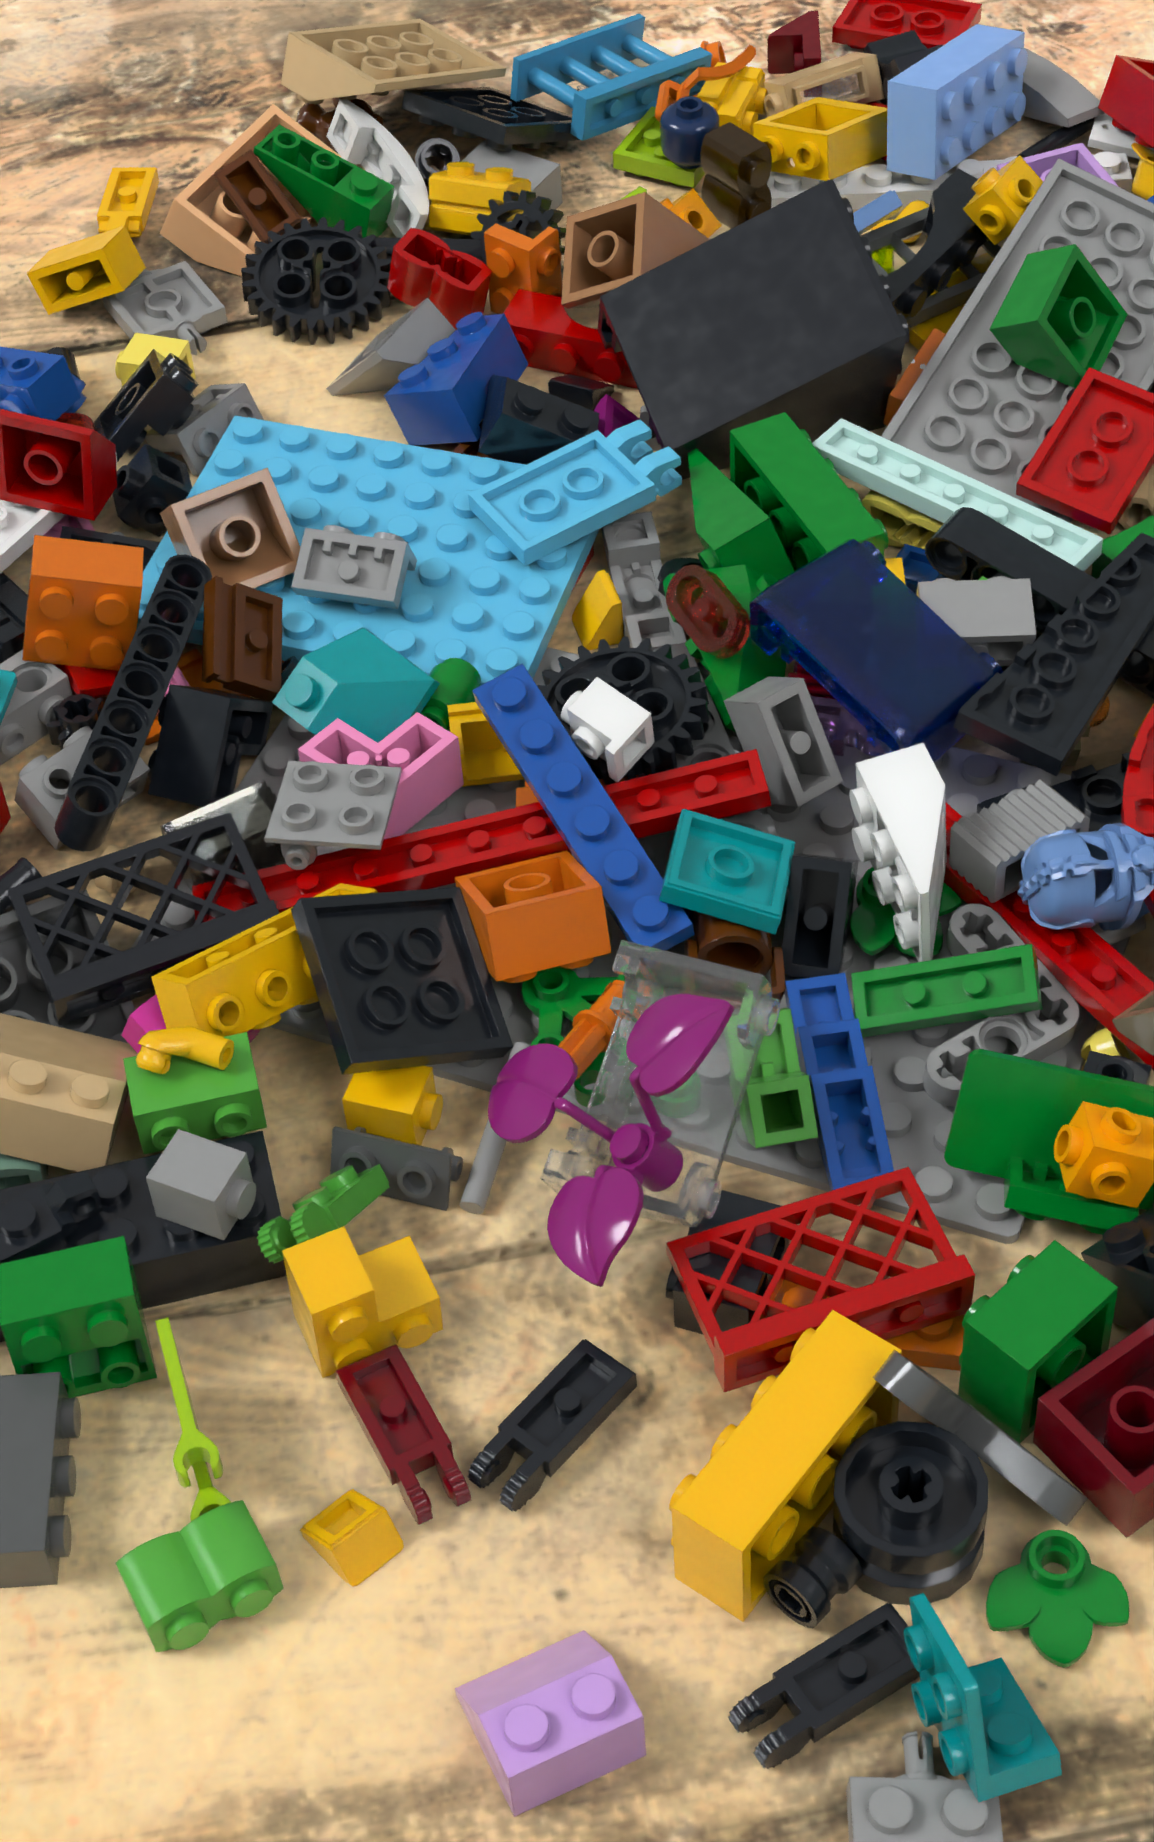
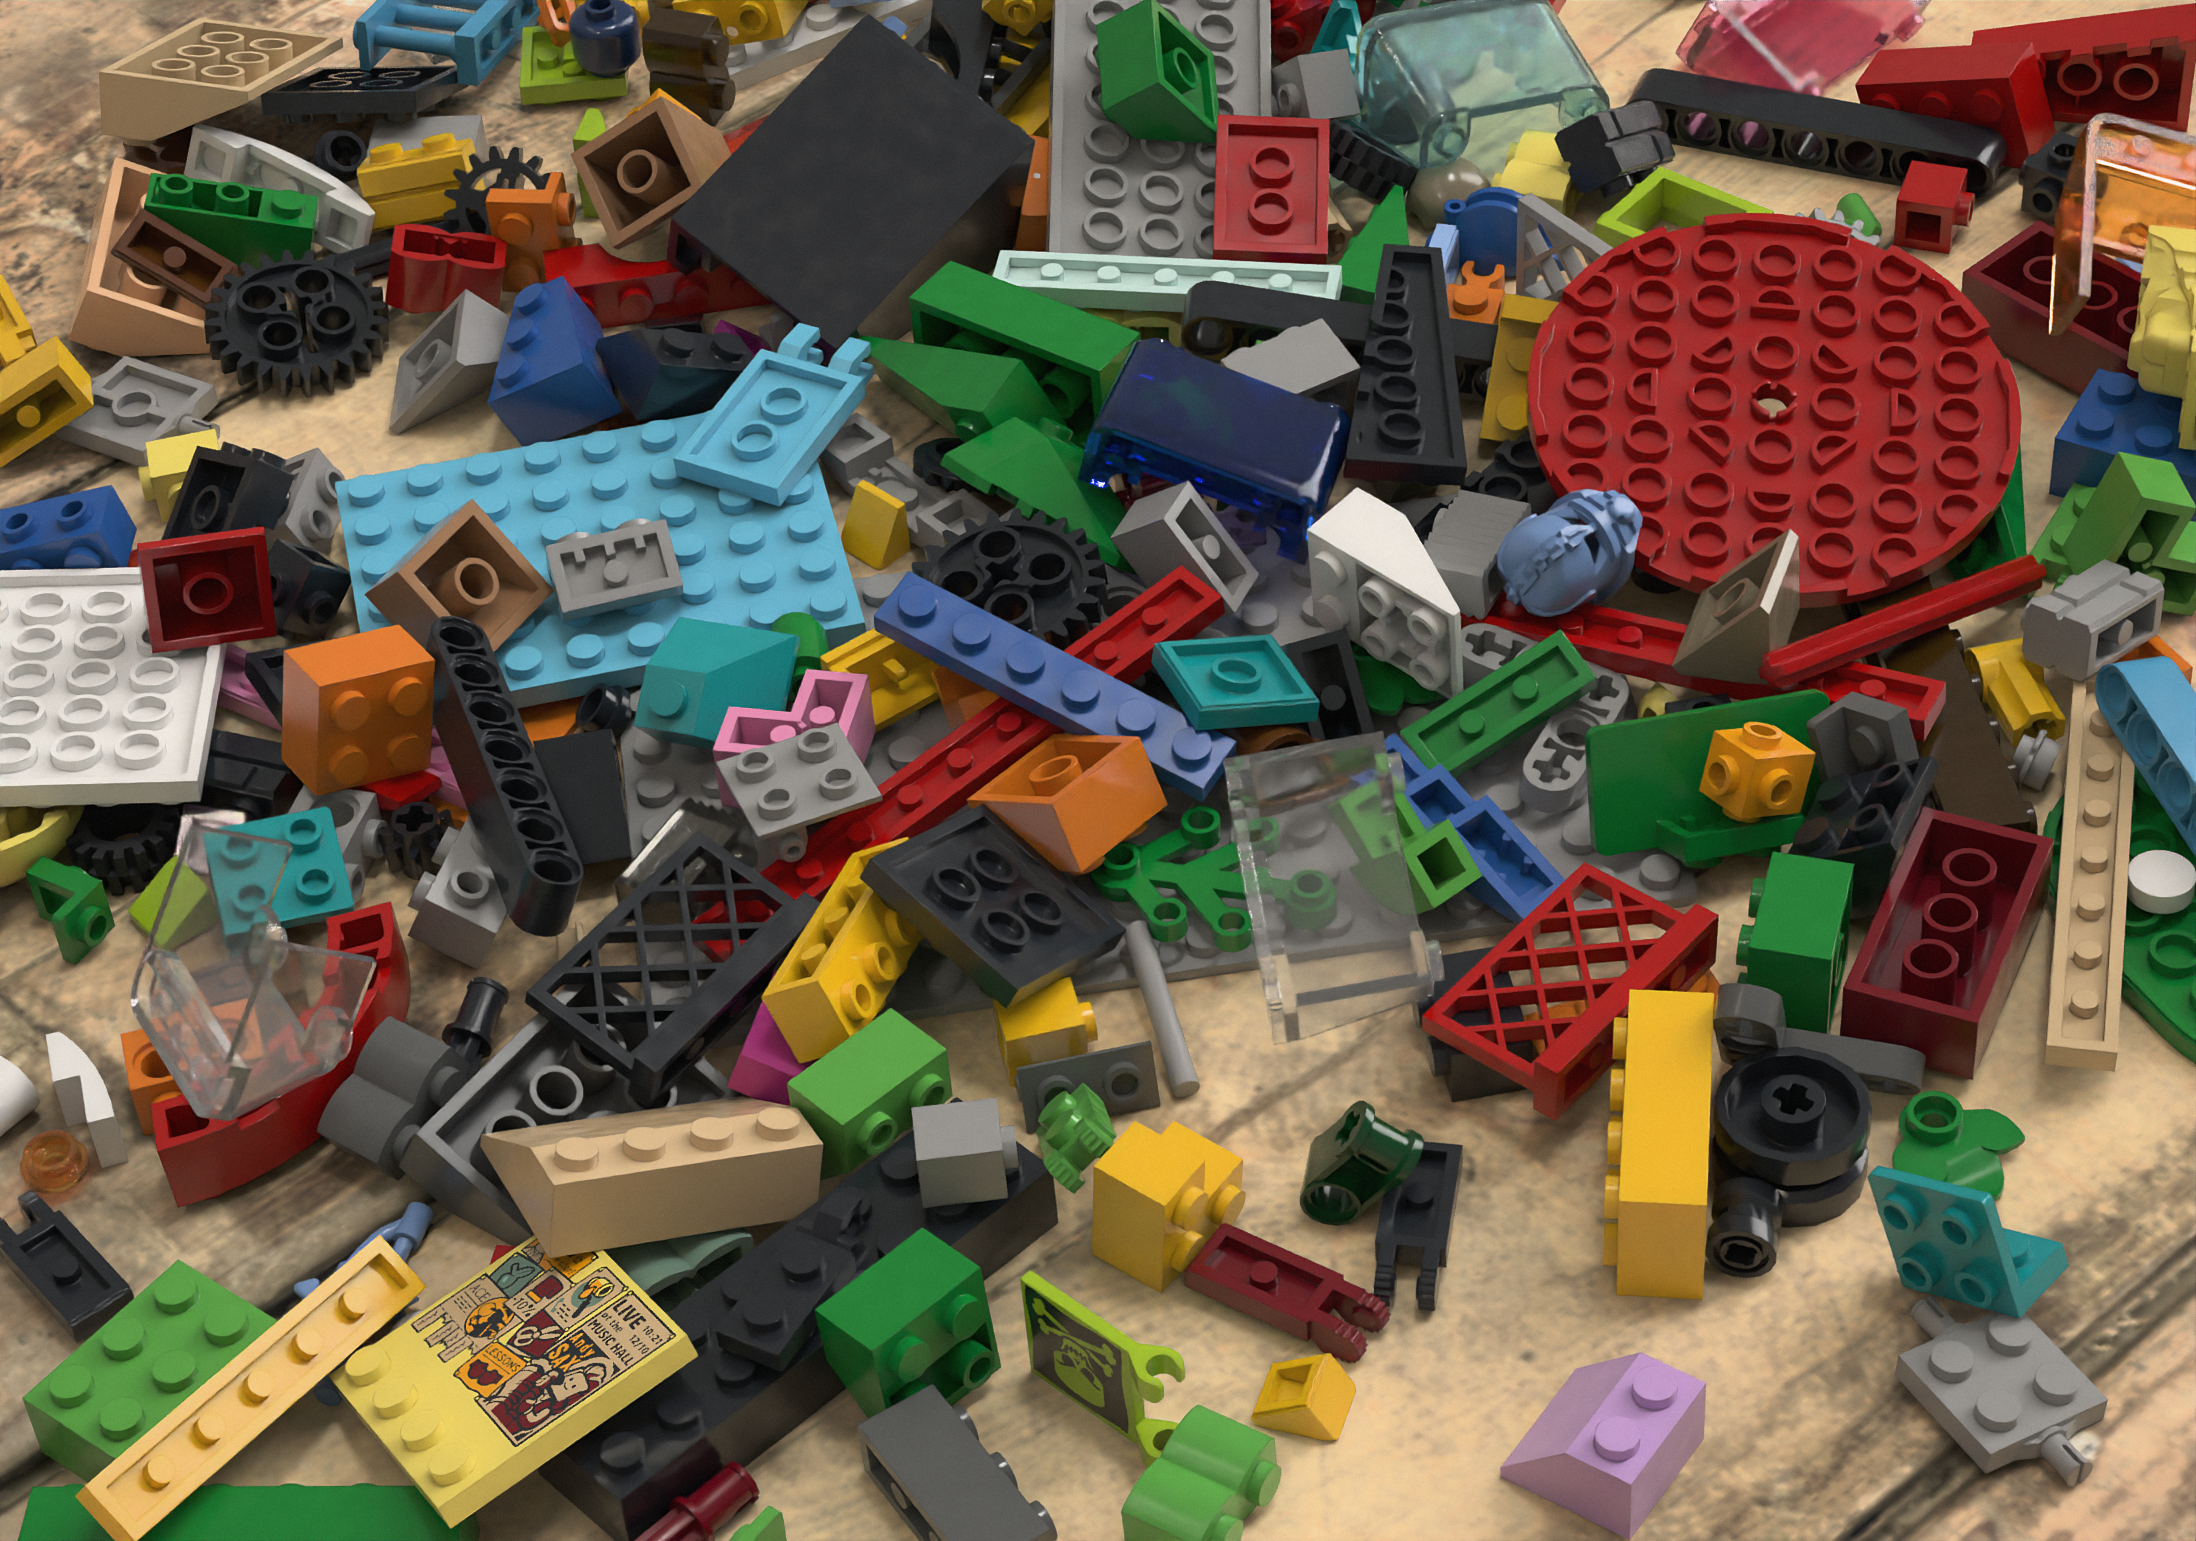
camera: 30 degrees left, 5 degrees down
(184, 1042) = (847, 1037): yellow arm -> none
(242, 639) = (551, 678): reddish brown plate -> none
(528, 1350) = (1356, 1165): none -> dark green piece
(592, 1028) = (1205, 875): orange axle -> none
(598, 1214) = (1366, 1003): magenta plant -> none
(608, 726) = (1032, 594): white brick -> none
(713, 622) = (1034, 466): clear red plate -> none
(829, 1685) = (1825, 1298): black hinge -> none

